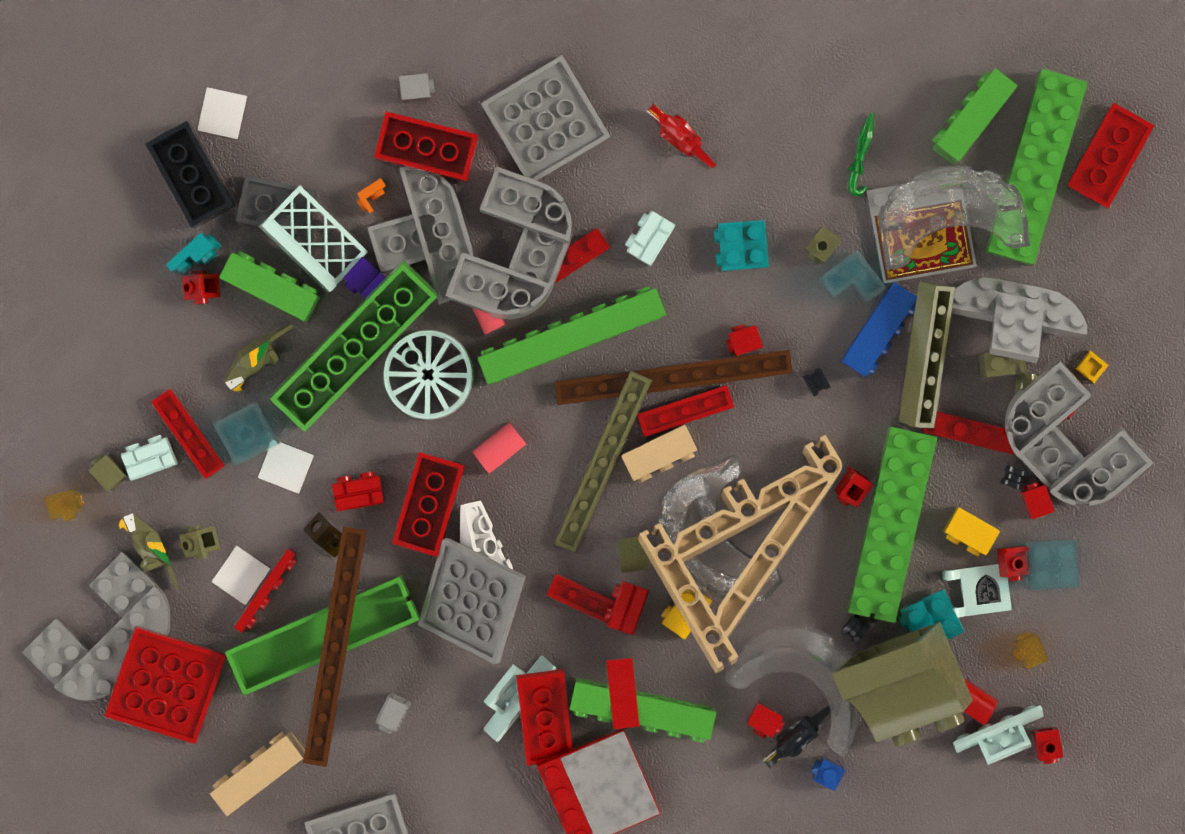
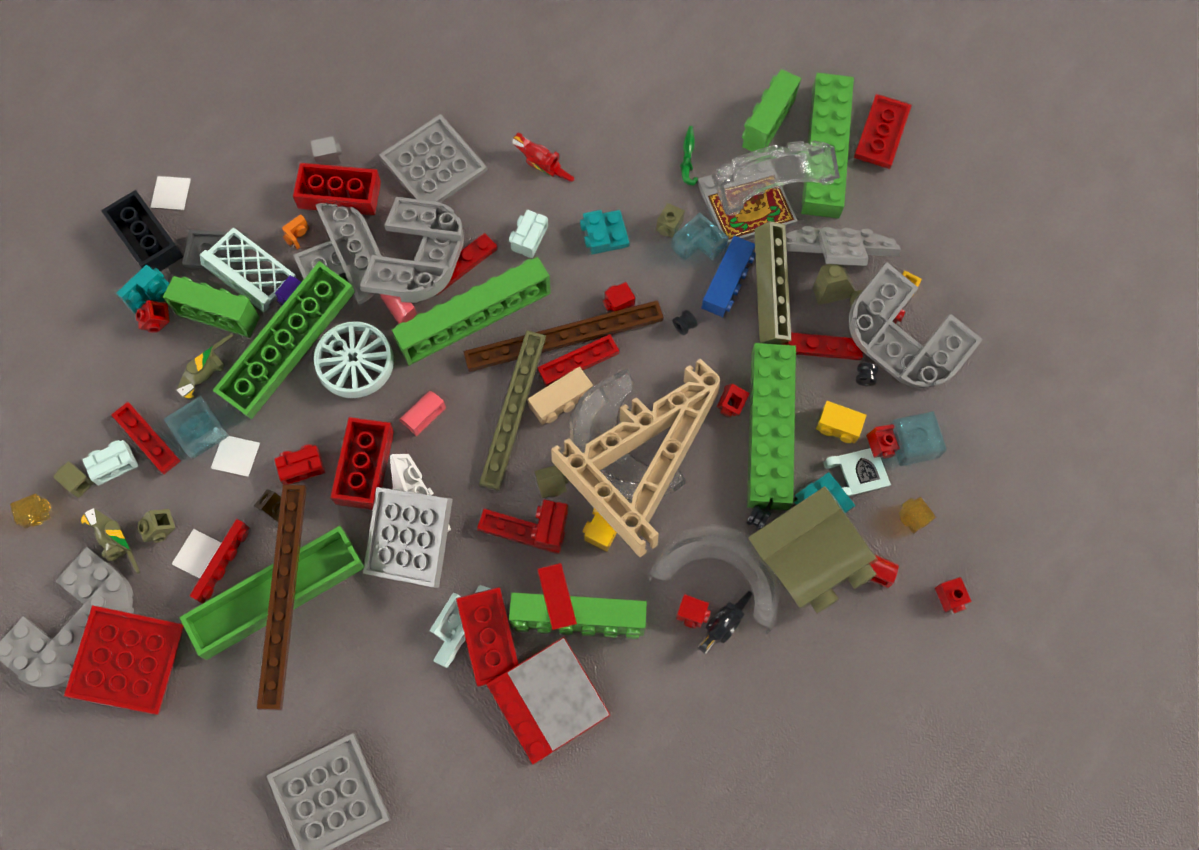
camera: 10 degrees left, 20 degrees down
(257, 774) = (215, 732): tan brick -> none
(392, 713) = (343, 653): light grey brick -> none
(827, 773) = (759, 651): blue brick -> none
(1001, 738) = (909, 595): light aqua bracket -> none
(1037, 500) = (891, 390): red brick -> none

